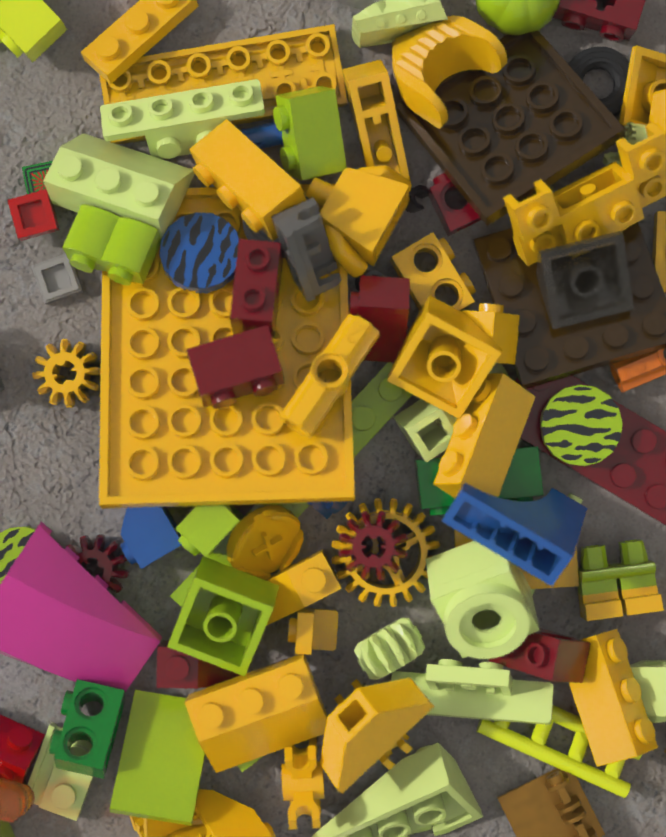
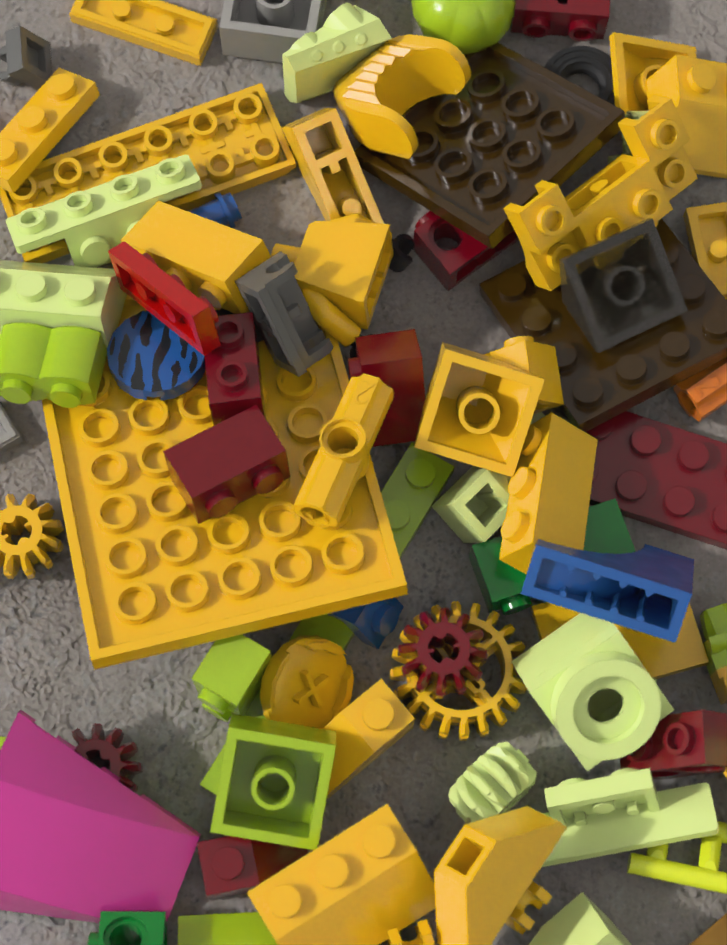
camera: 15 degrees left, 15 degrees down
(148, 534) = (158, 706): blue slope -> none
(214, 216) = (166, 297): none -> red plate
(310, 132) = (260, 193): lime brick -> none
(313, 630) = (393, 784): yellow bracket -> none
(425, 283) = (453, 327): yellow brick -> none
(581, 425) = (660, 464): lime tile -> none

